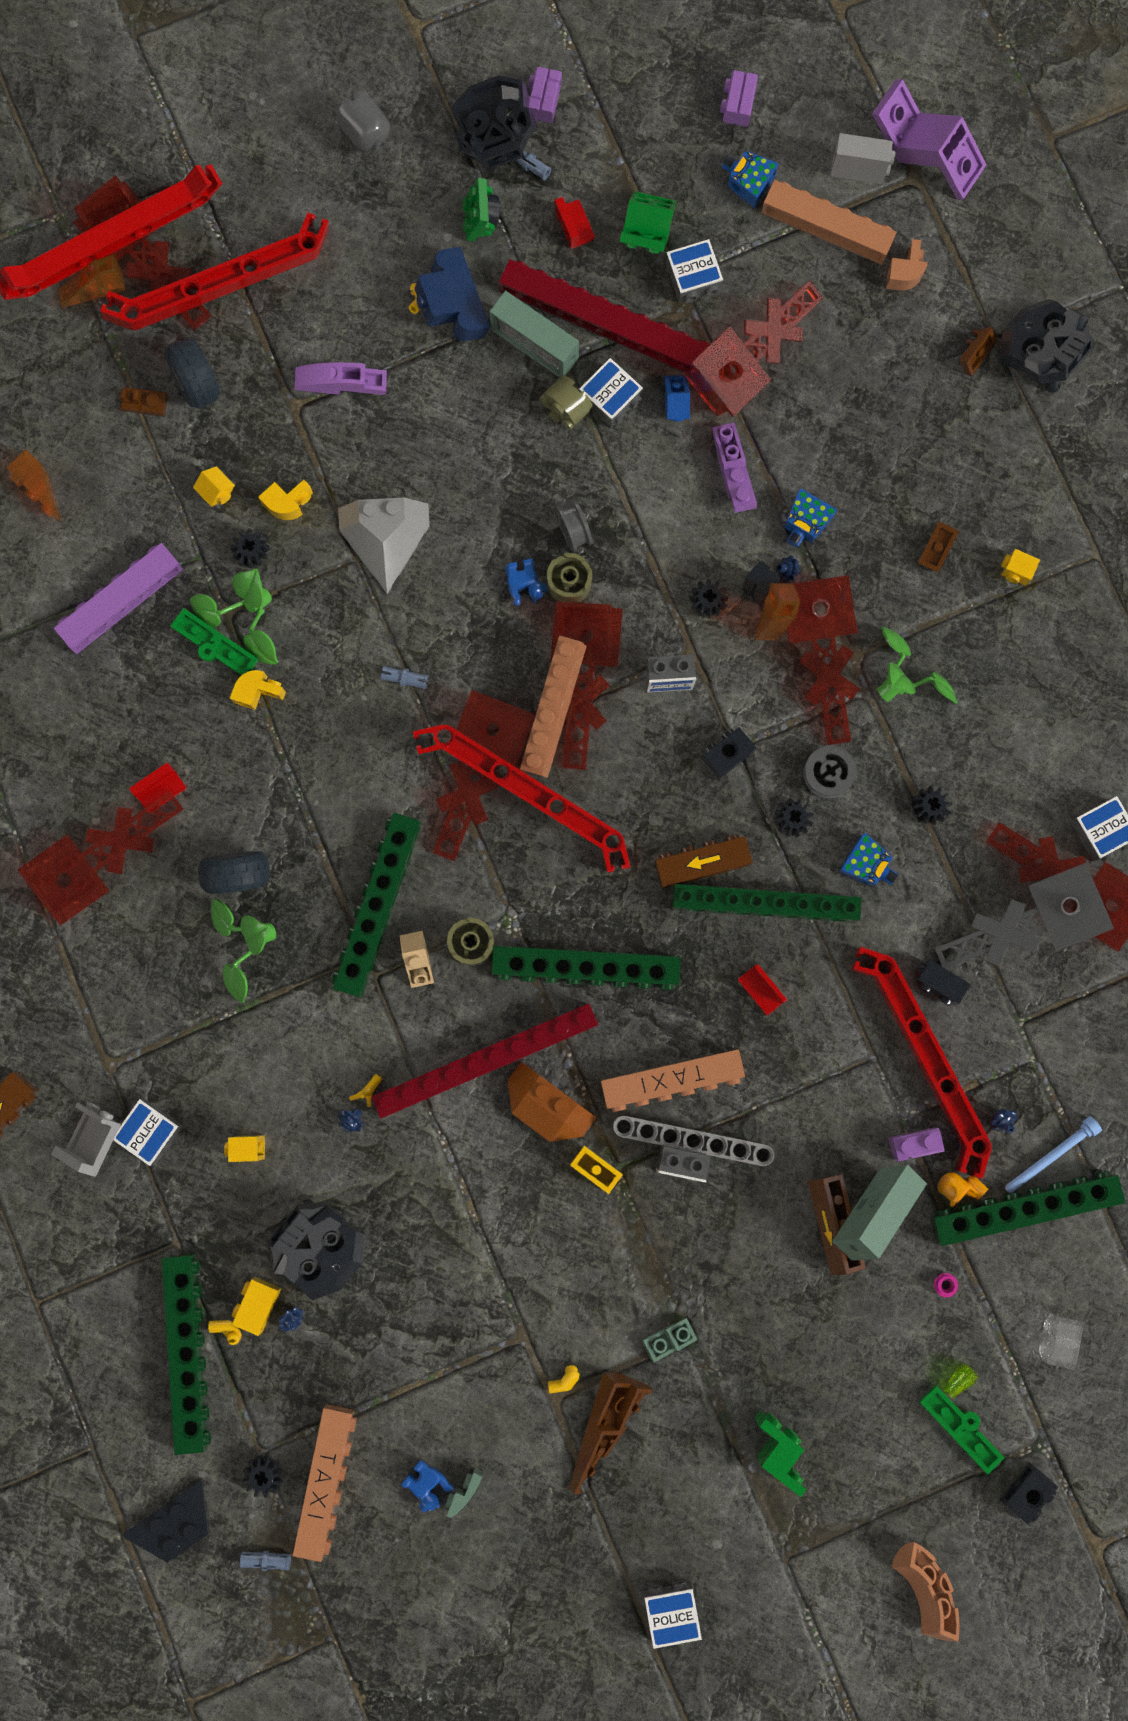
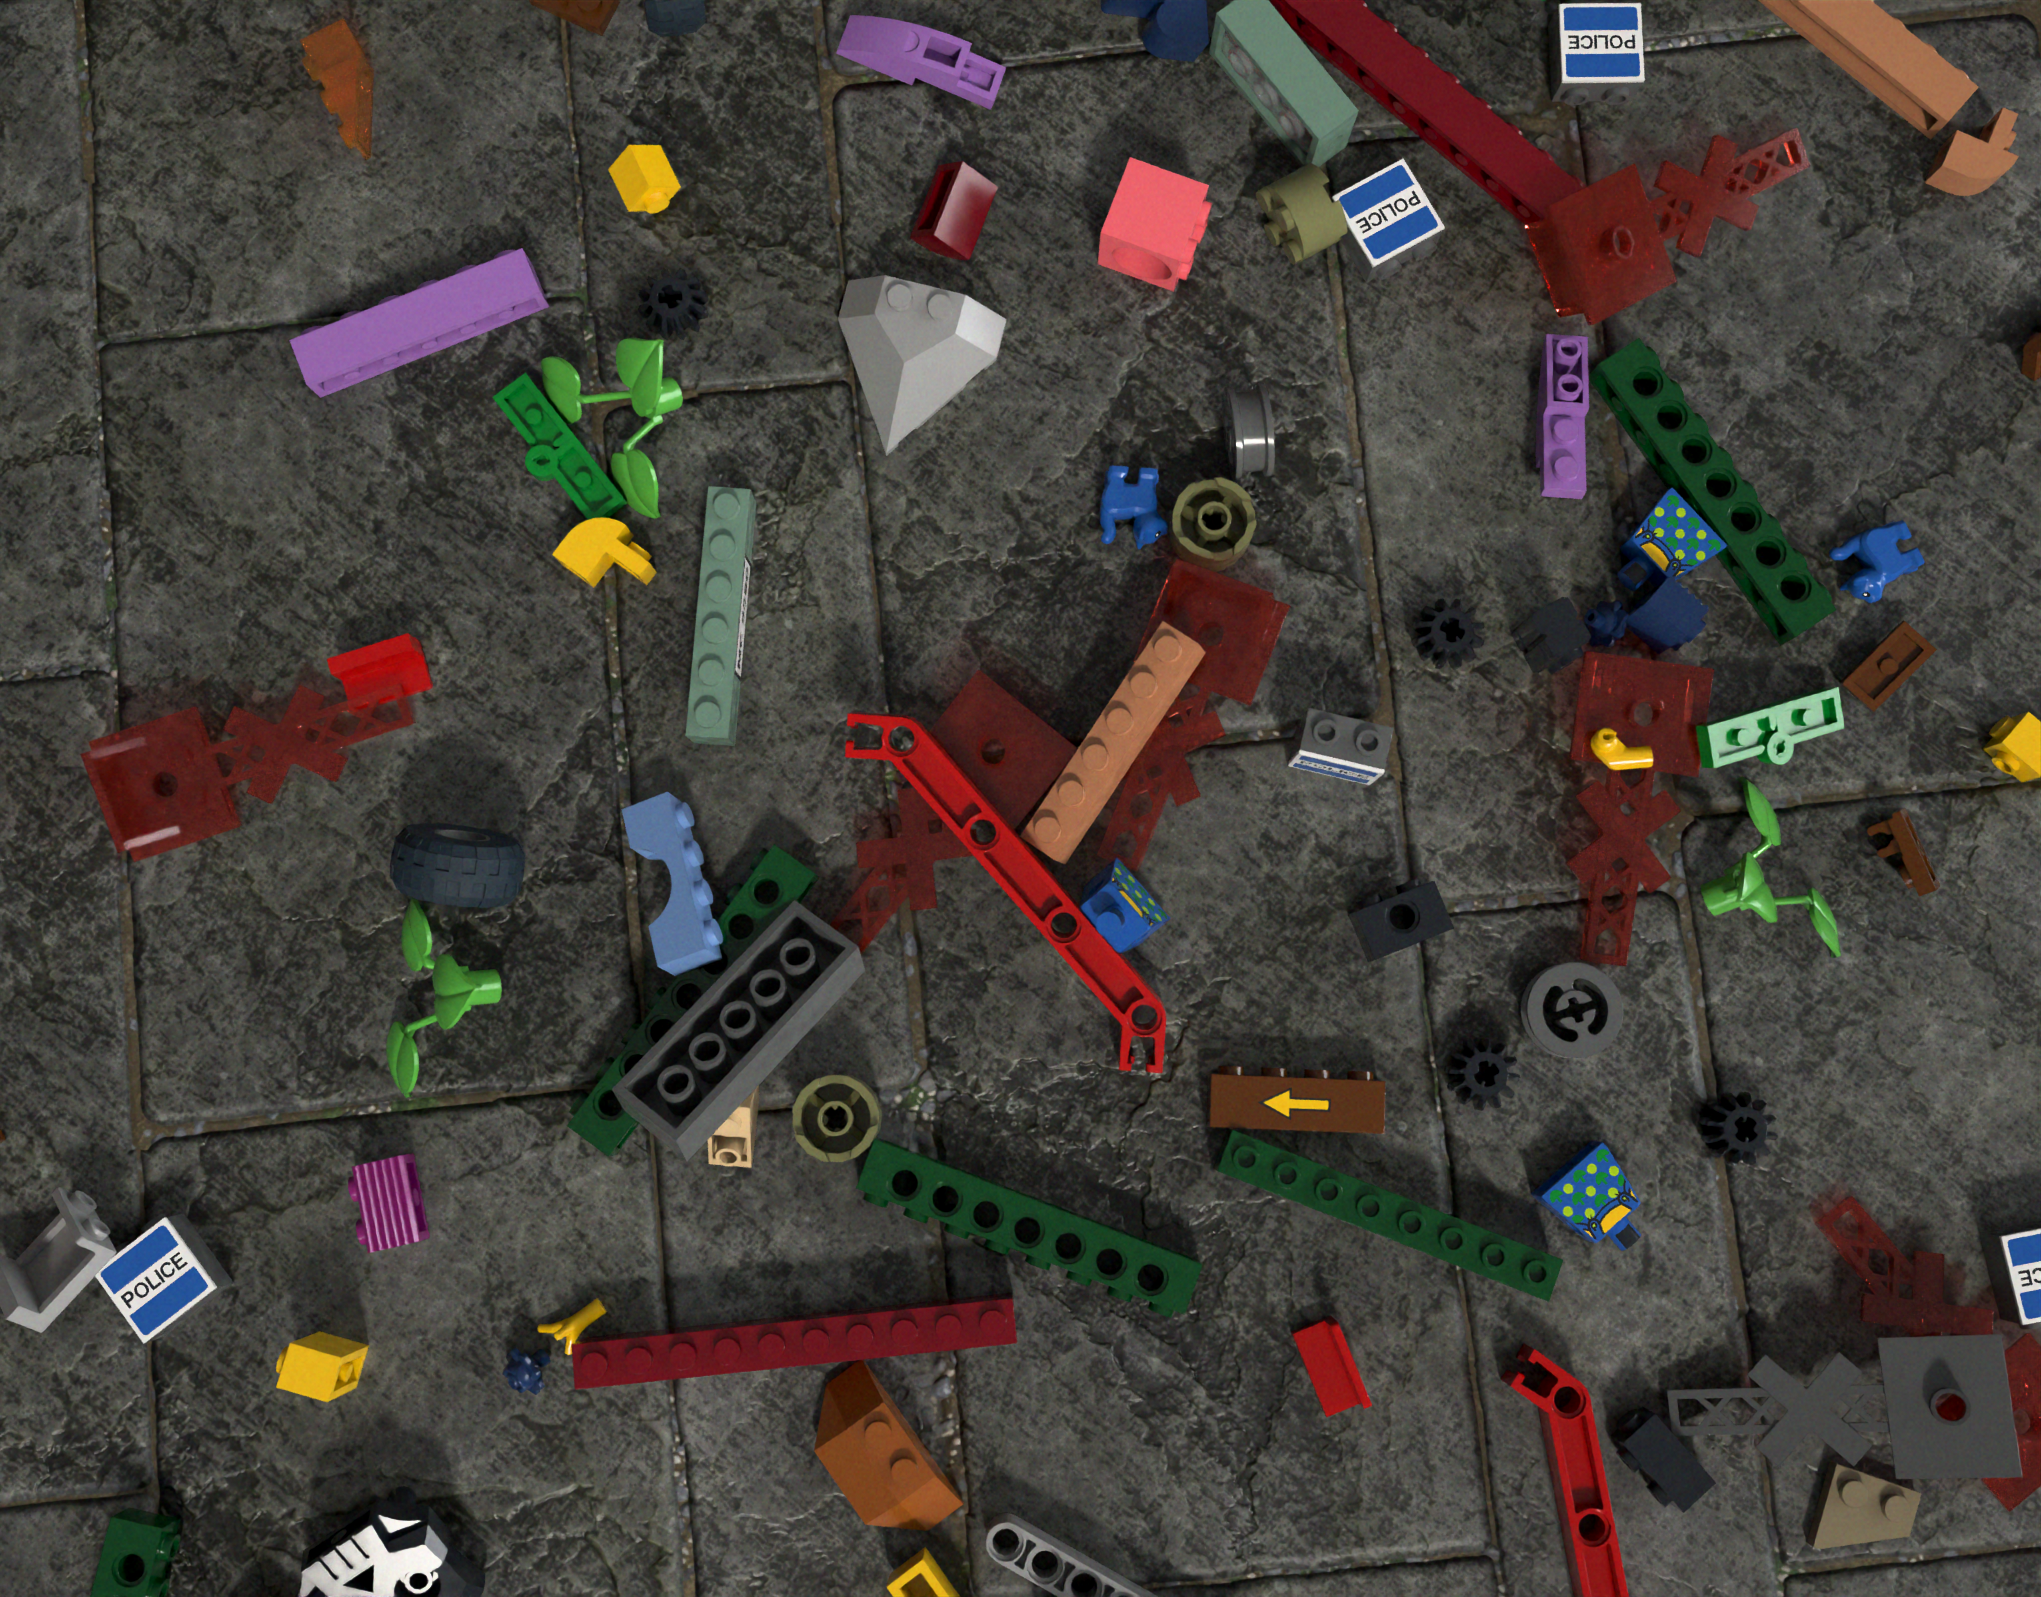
camera: 20 degrees right, 0 degrees up
(252, 1058) = (388, 1203): none -> magenta brick
(285, 505) = (757, 248): yellow brick -> none
(328, 704) = (721, 616): none -> sand green brick
(362, 870) = (685, 931): none -> medium blue arch
(382, 454) = (954, 211): none -> dark red brick
(404, 677) = (869, 609): sand blue pin -> none
(407, 910) = (739, 1030): none -> dark grey brick
(491, 431) = (1154, 225): none -> coral brick
(583, 790) = (1121, 907): none -> blue torso
(671, 1079) = (1121, 1481): nougat brick -> none
(677, 398) = (1499, 264): blue slope -> none
(778, 611) = (1569, 696): clear orange slope -> none
(790, 468) = (1713, 464): none -> dark green brick
(812, 634) = (1616, 754): none -> yellow arm
(817, 555) = (1667, 616): none -> dark blue brick
(887, 597) = (1770, 729): none -> hinge
(918, 492) = (1880, 559): none -> blue animal
(983, 644) = (1917, 868): none -> reddish brown plate
(1049, 977) = (1861, 1509): none -> dark tan wing

